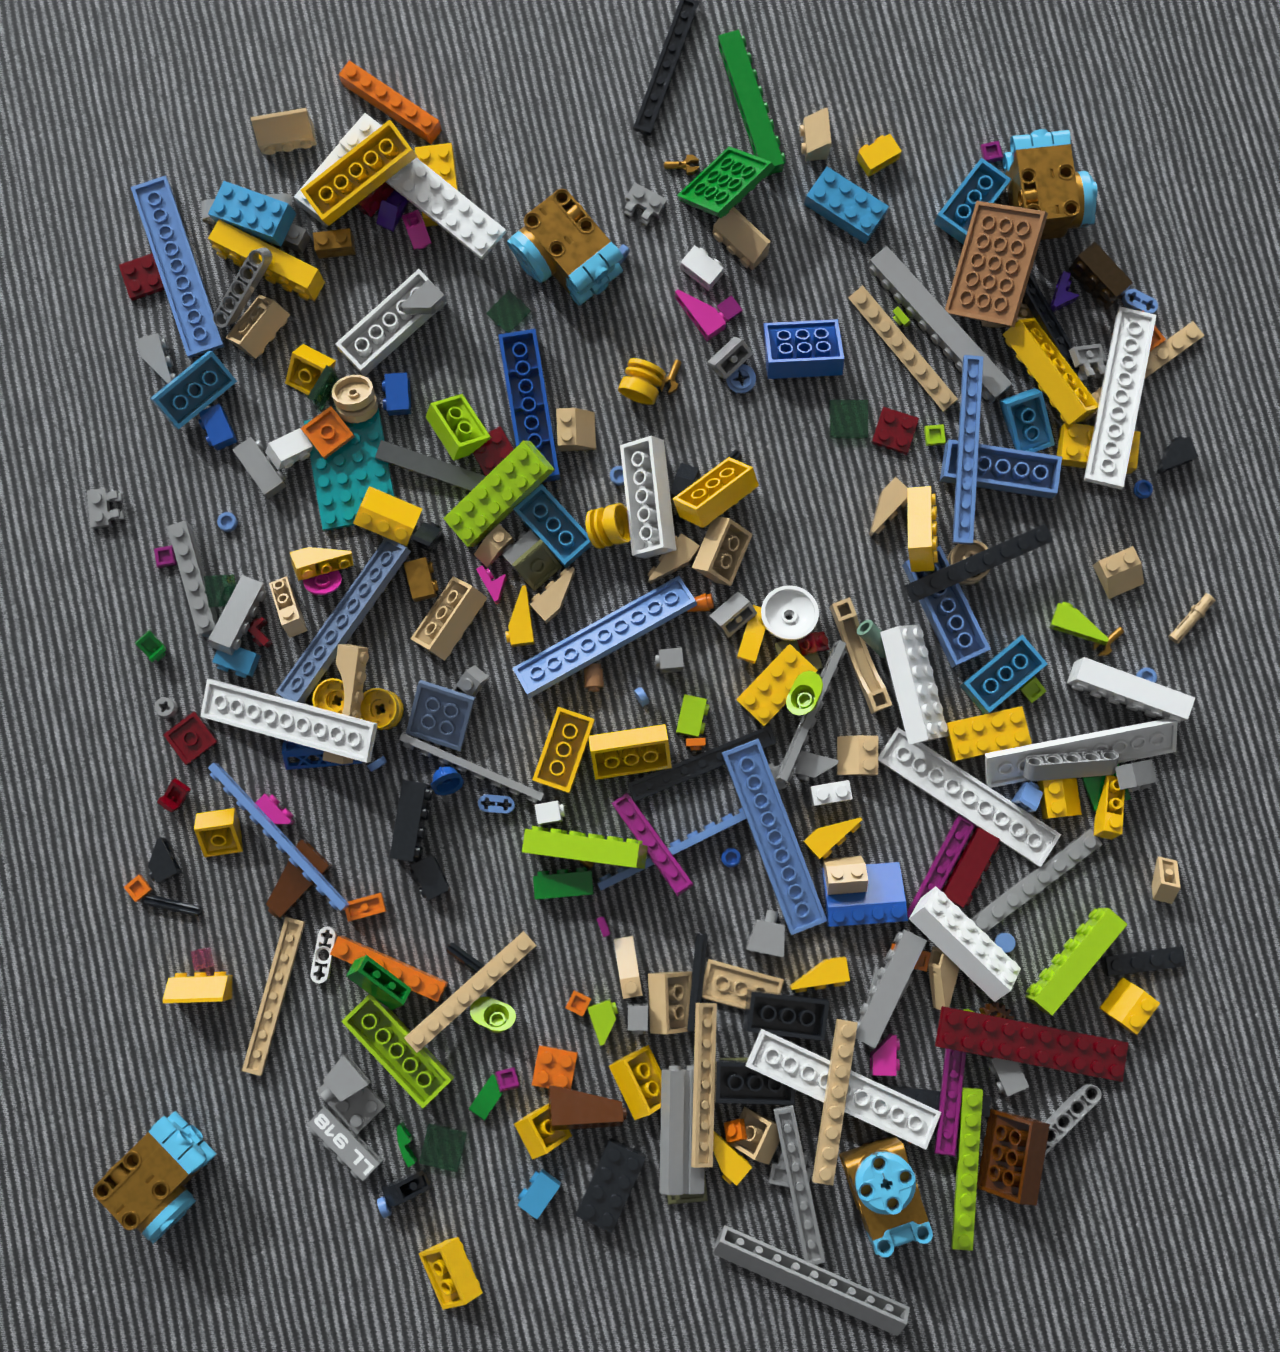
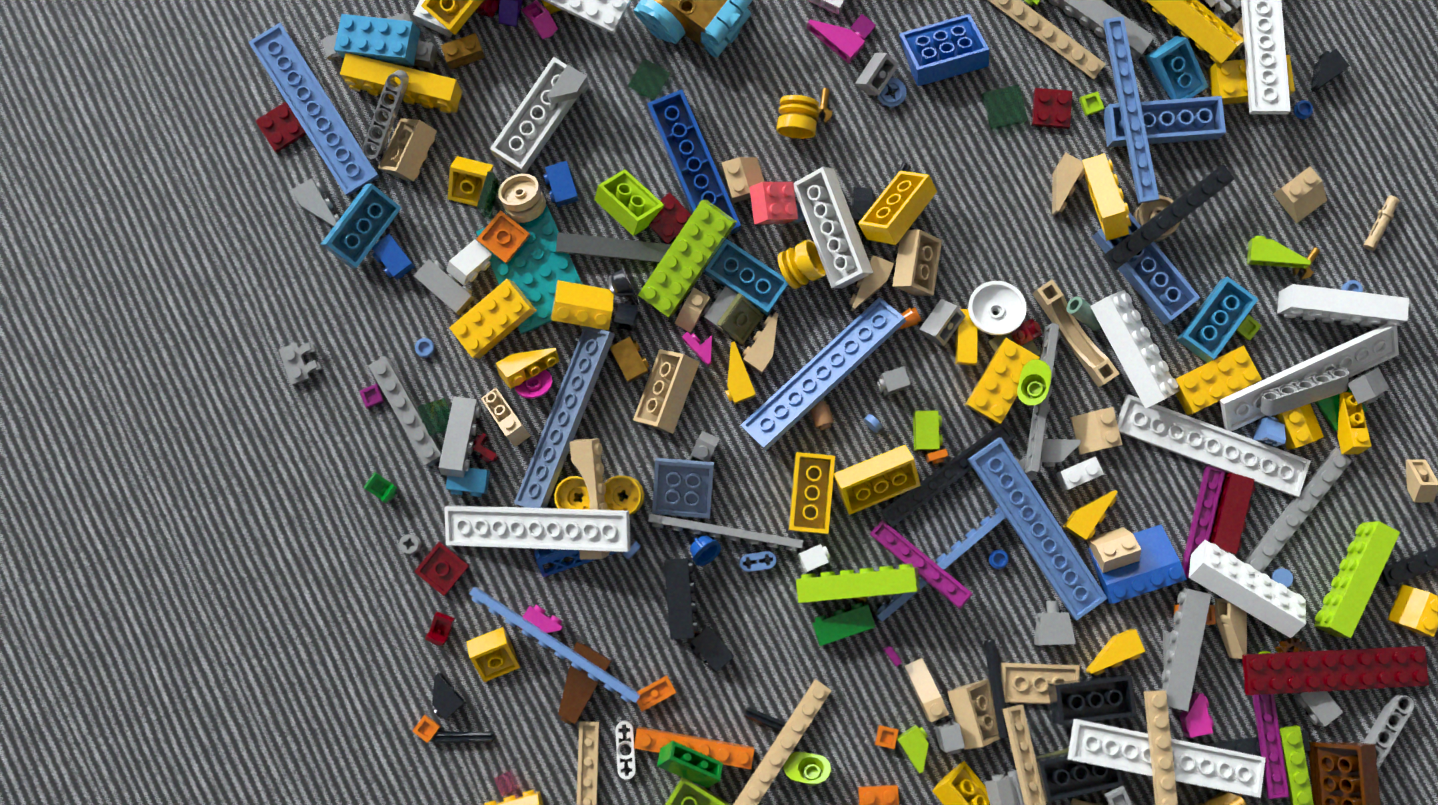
camera: 15 degrees left, 0 degrees up
(298, 509) = (492, 319): none -> yellow brick
(429, 504) = (620, 285): none -> black piece
(597, 459) = (773, 202): none -> coral brick

